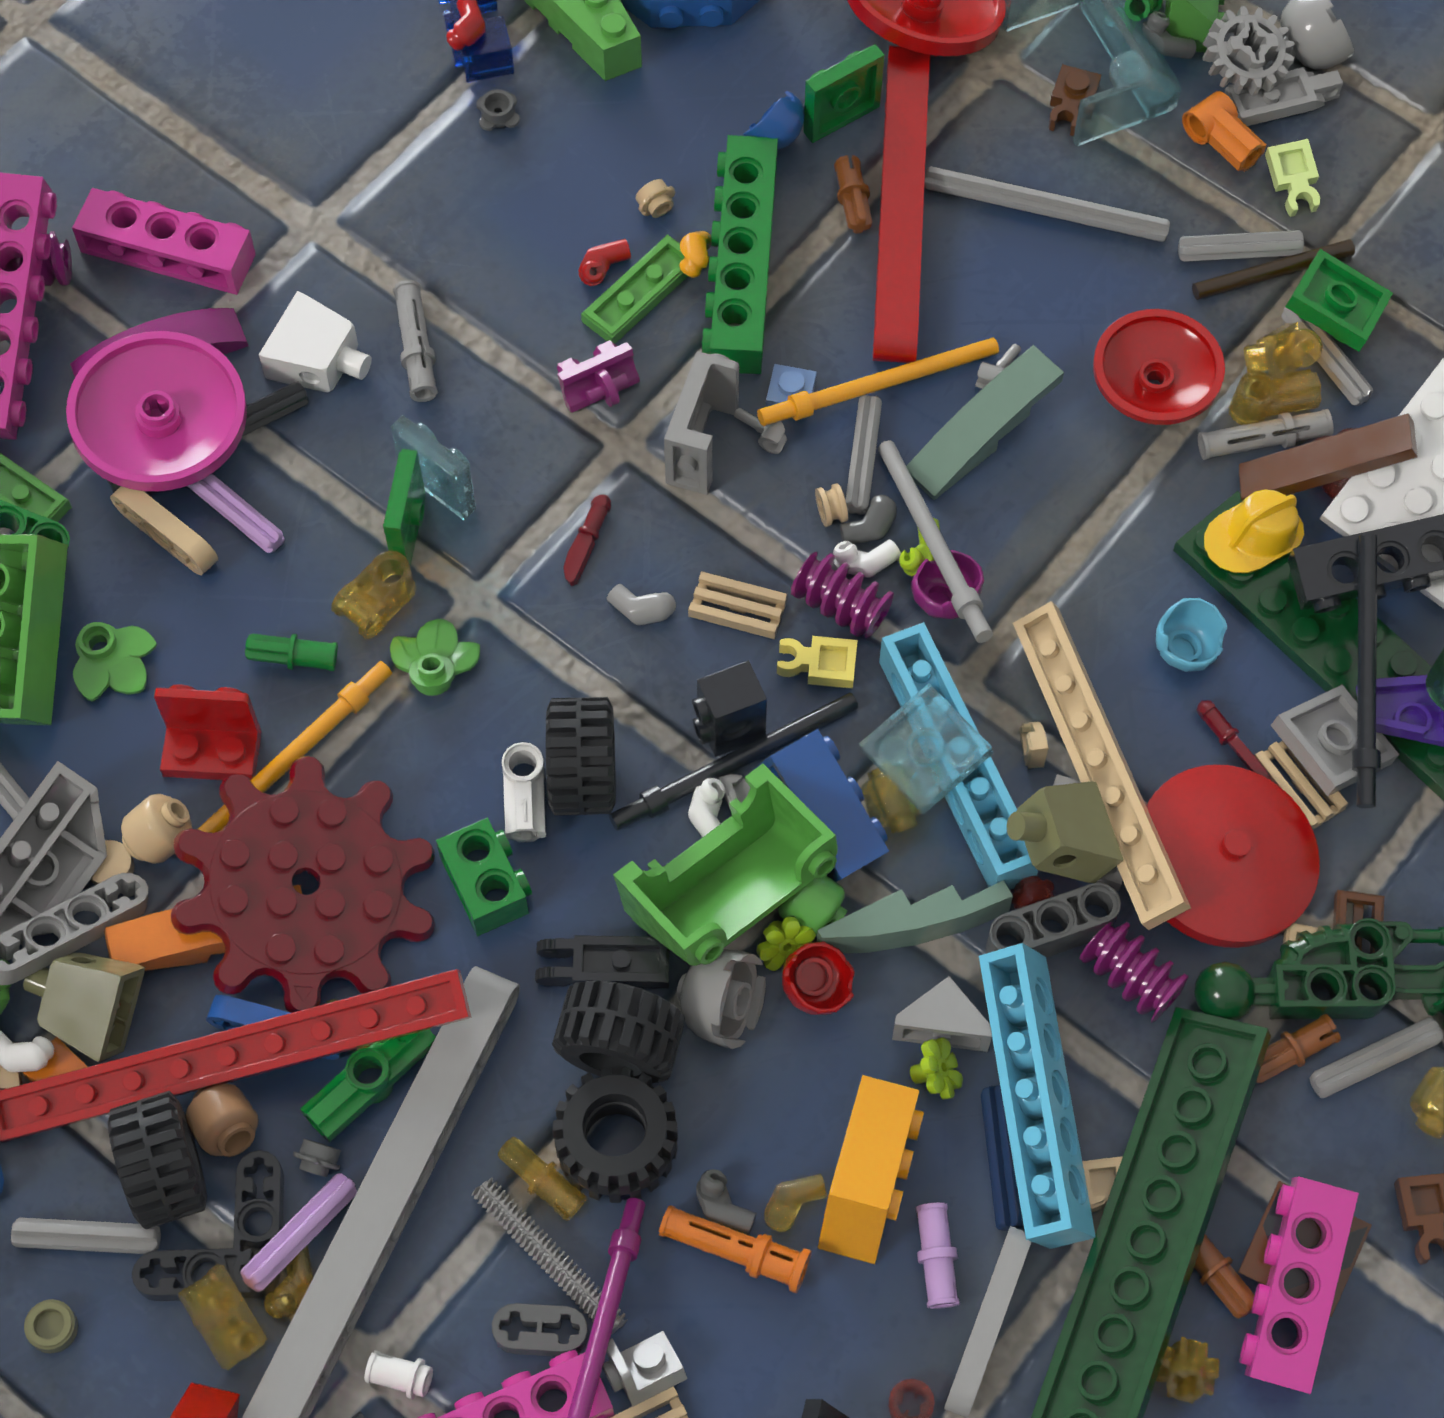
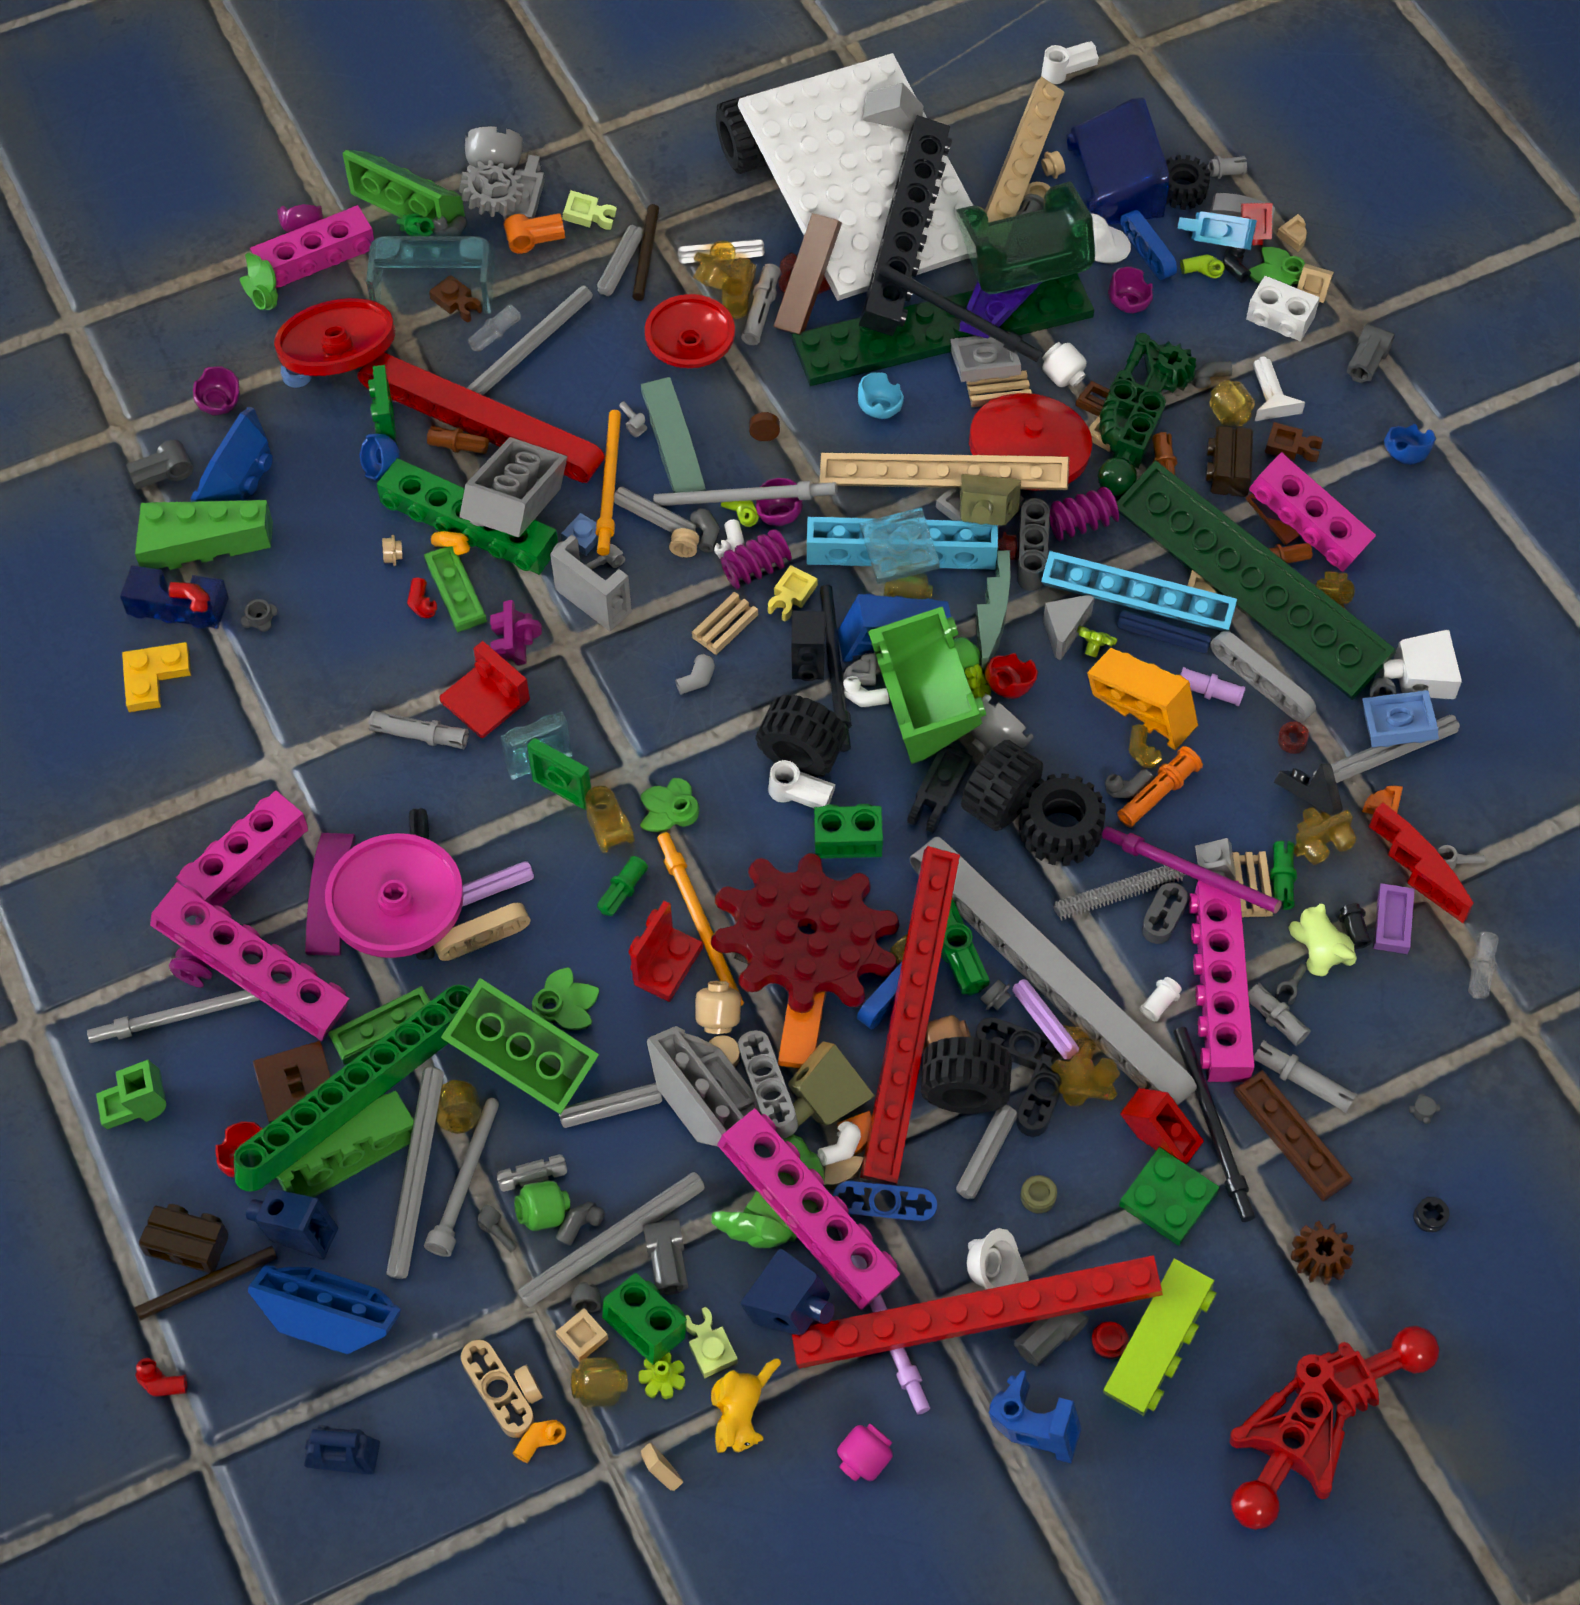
camera: 65 degrees left, 5 degrees down
(312, 347) = (389, 790): white torso -> none
(371, 38) = (146, 667): none -> yellow plate
(496, 386) = (487, 692): none -> red bracket
(542, 1178) = (1068, 874): clear yellow axle -> none
(585, 539) = (627, 686): dark red piece -> none
(786, 272) = (513, 487): none -> light grey brick
(1033, 744) = (905, 501): tan tile -> none
(1046, 157) = (494, 328): none -> clear axle
(1065, 520) = (764, 426): none -> reddish brown tile
(1228, 735) = (951, 409): dark red piece -> none
(1254, 532) = (829, 334): yellow piece -> none
(1339, 300) = (694, 225): green plate -> none
(1344, 1137) = (1231, 461): none -> dark brown brick
(1376, 1057) = (1187, 427): light grey axle -> none
(1383, 848) = (1064, 365): none -> white head

